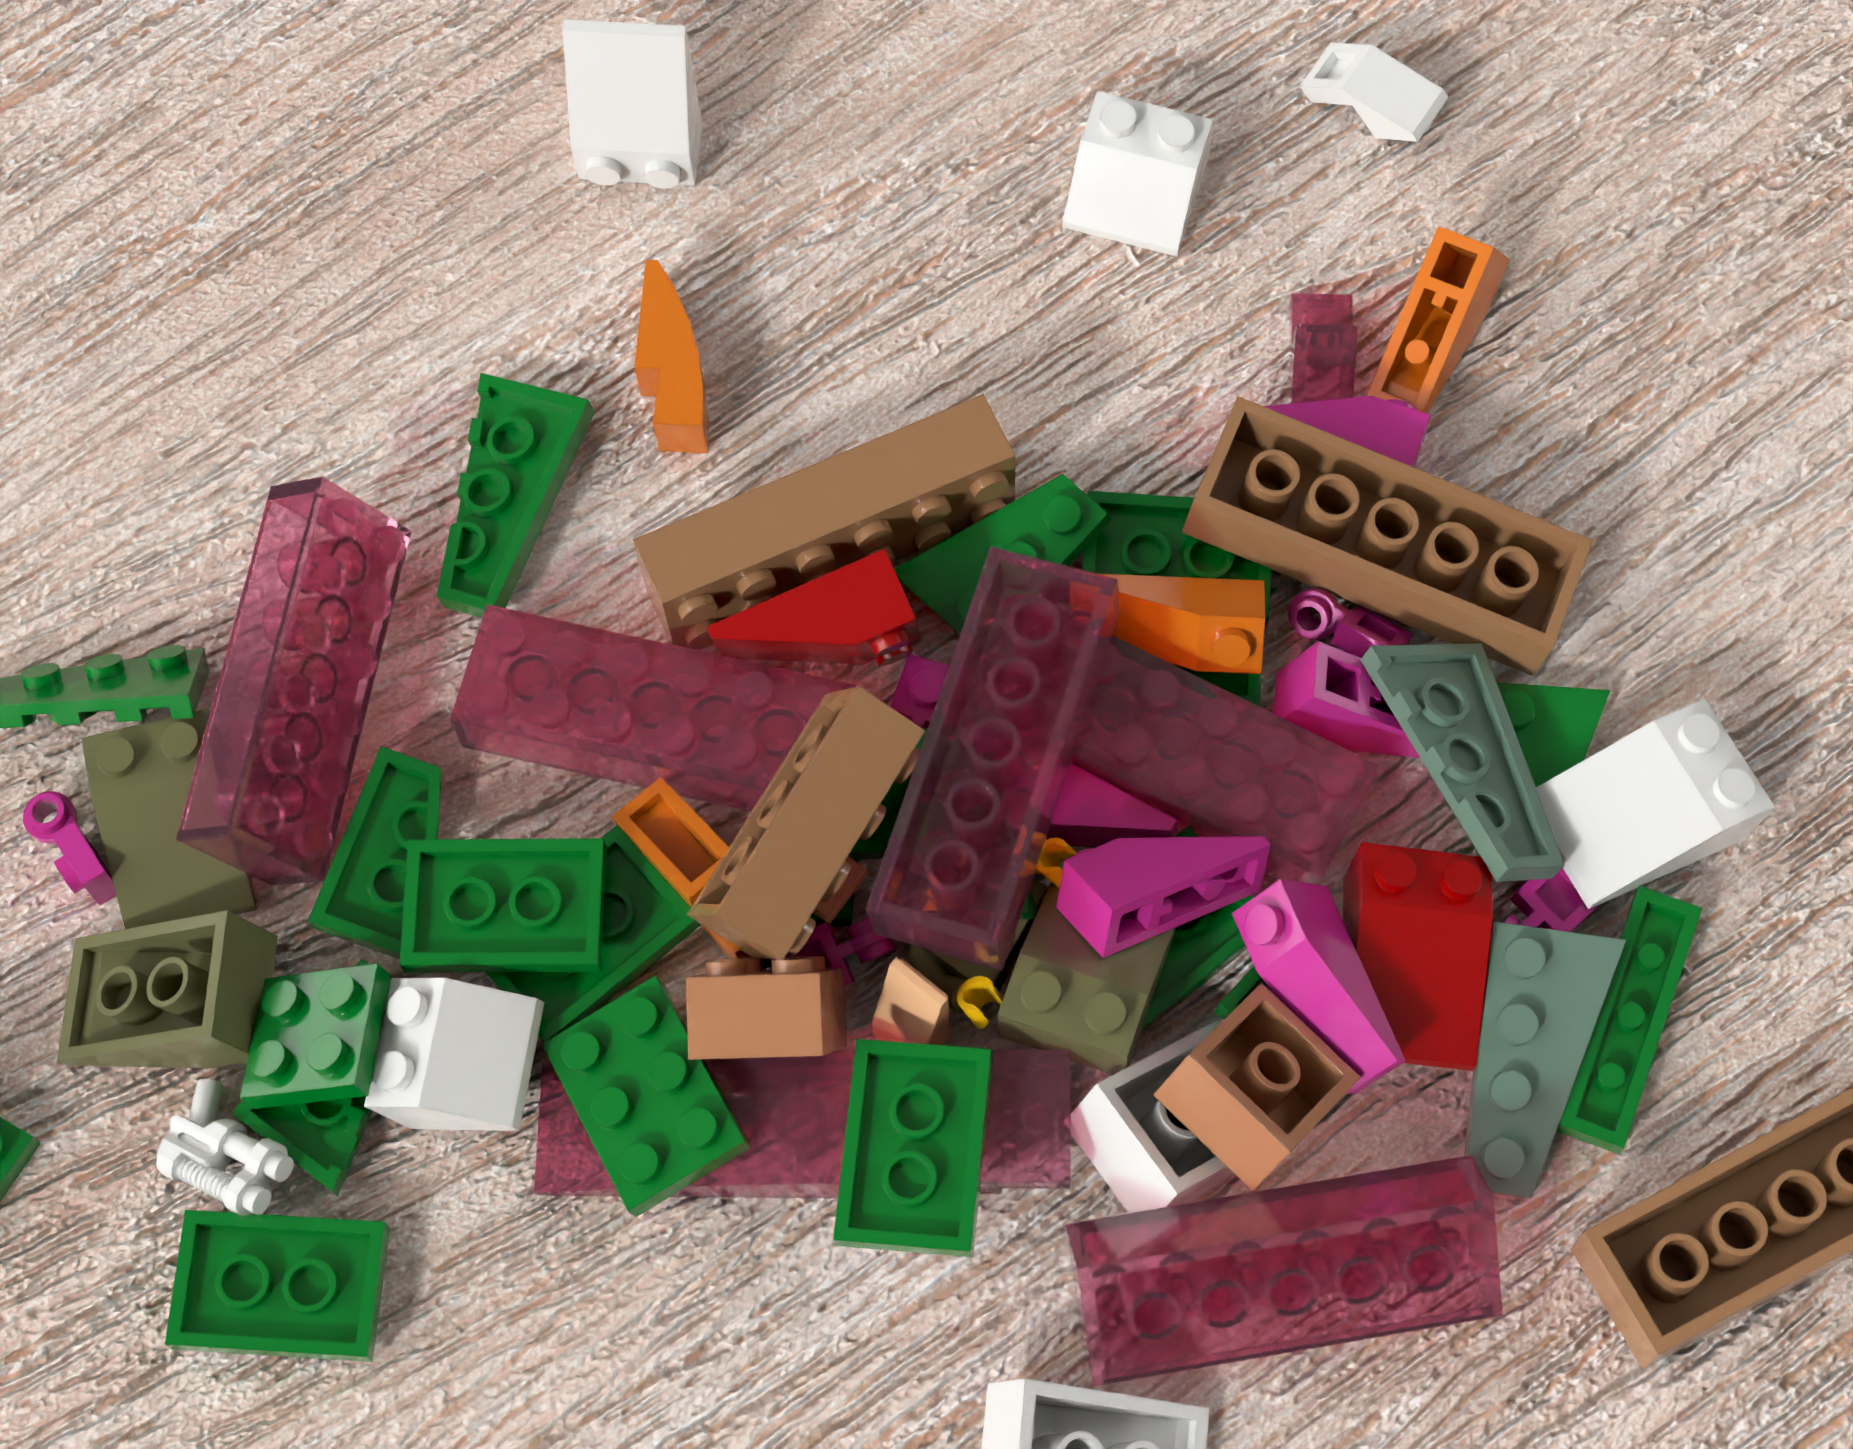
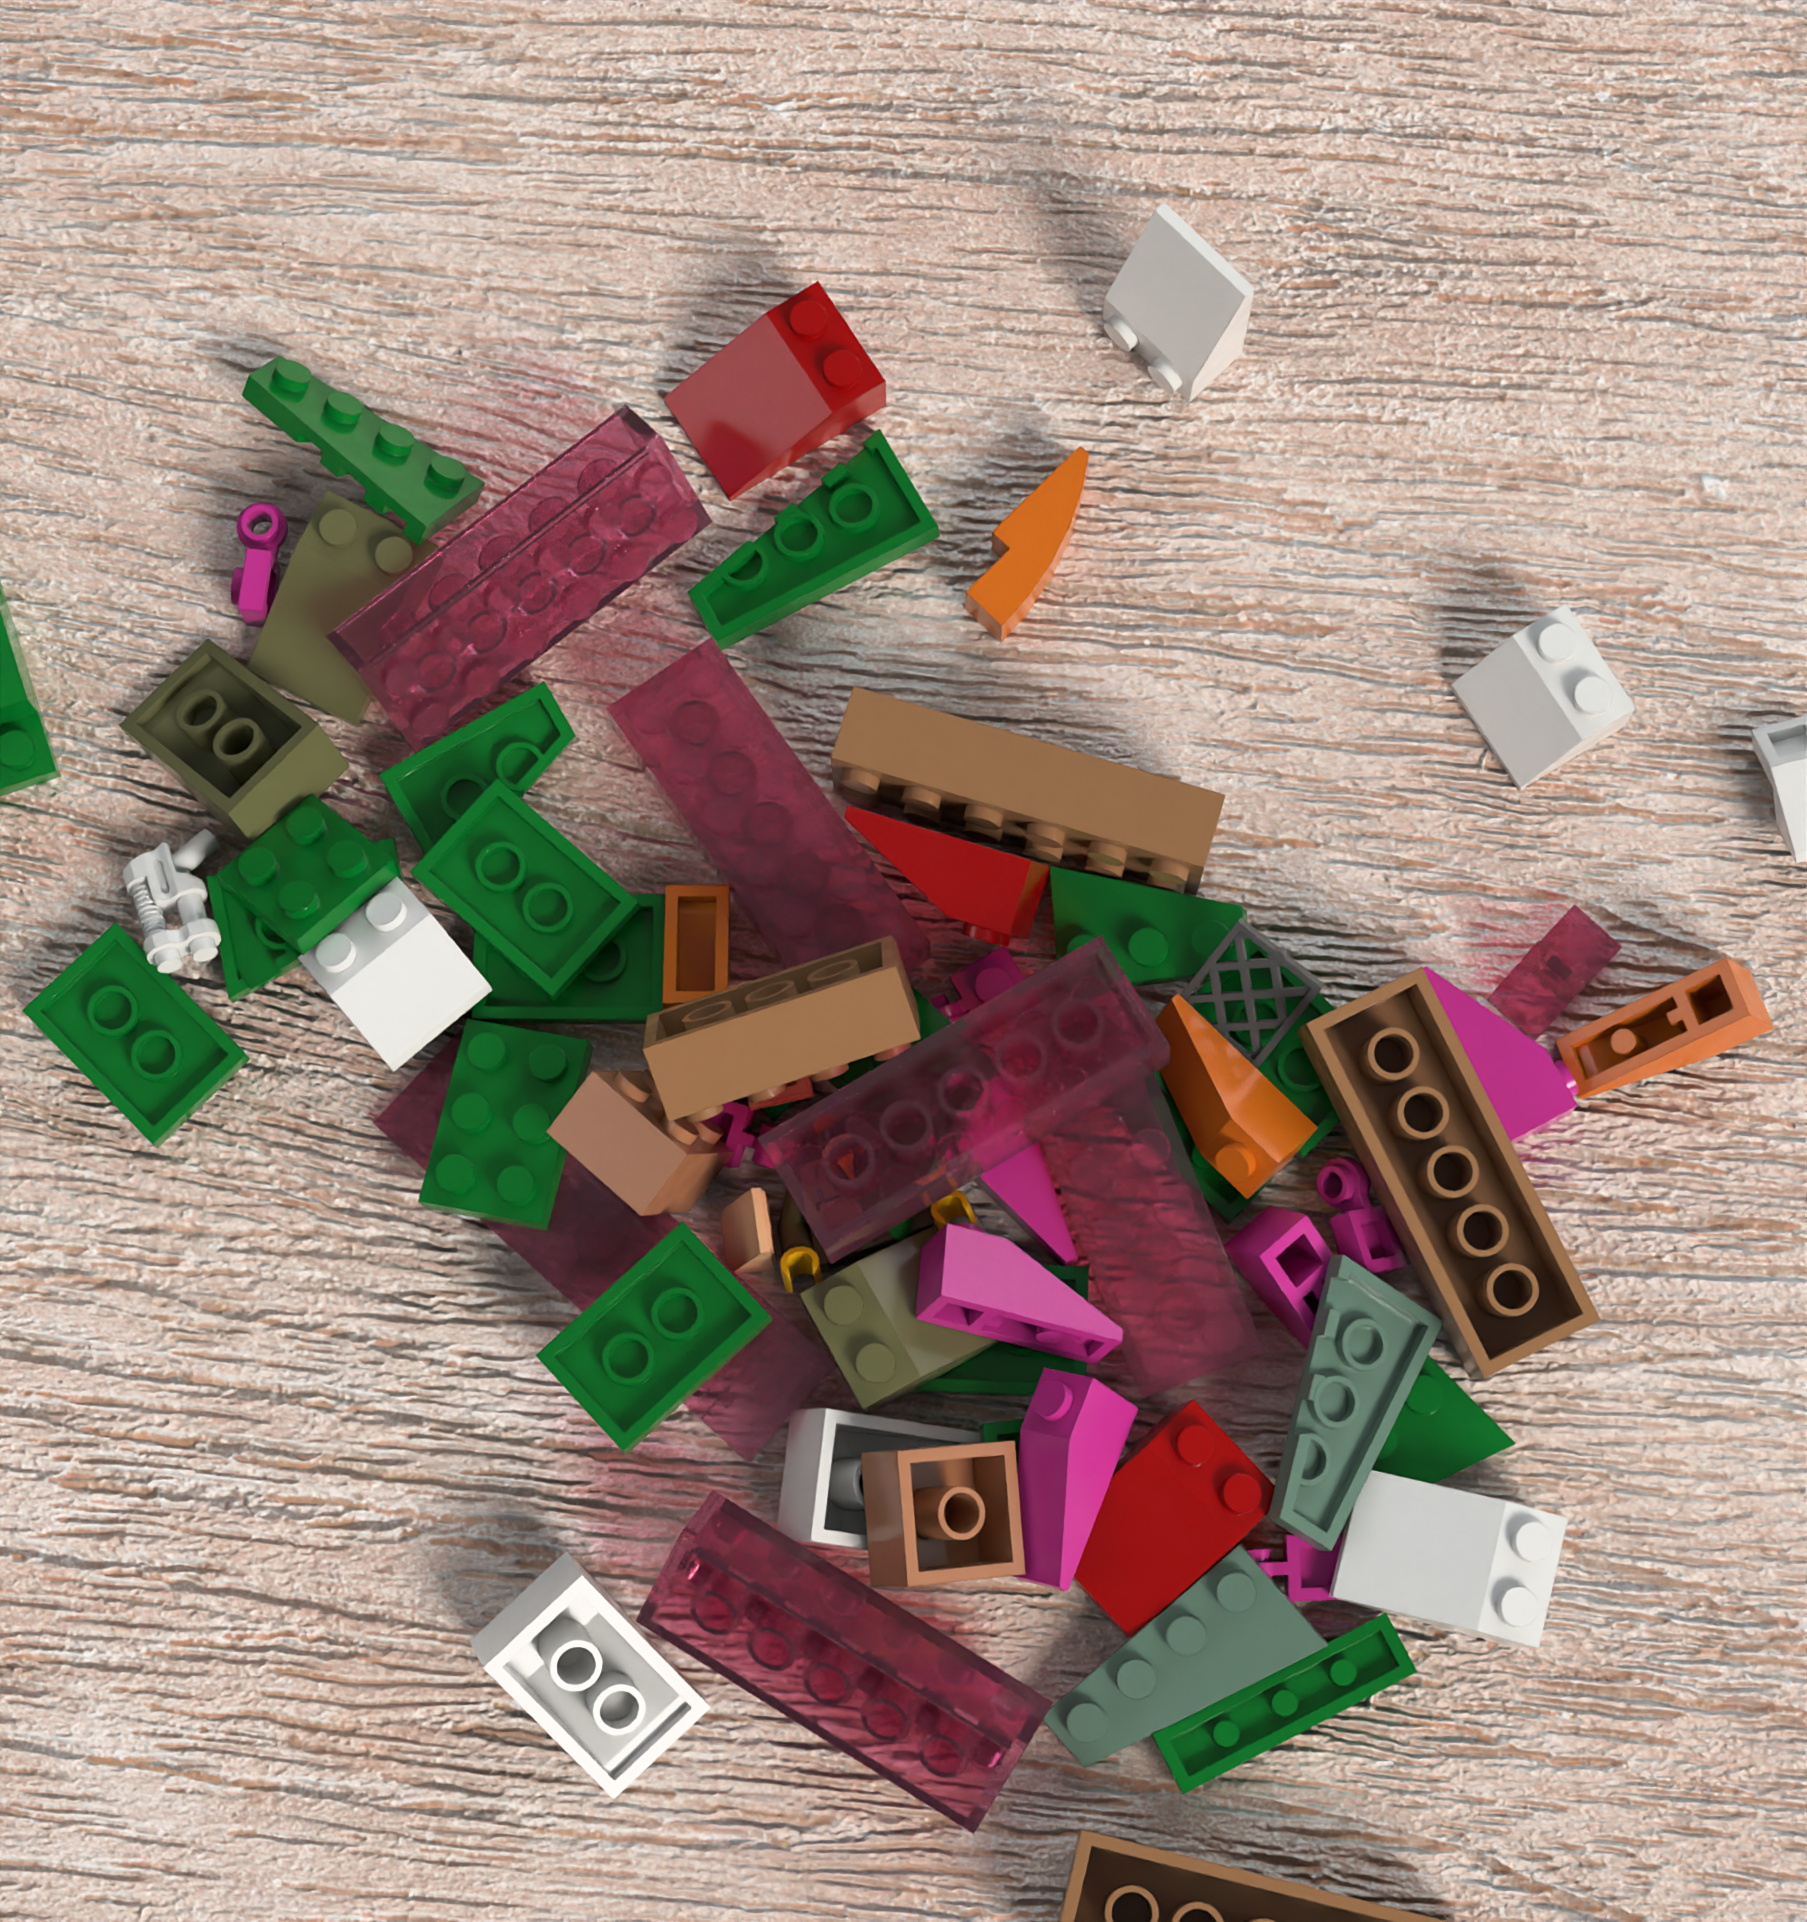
camera: 40 degrees right, 10 degrees up
(381, 402) = (777, 392): none -> red slope
(1126, 479) = (1277, 958): none -> dark grey window

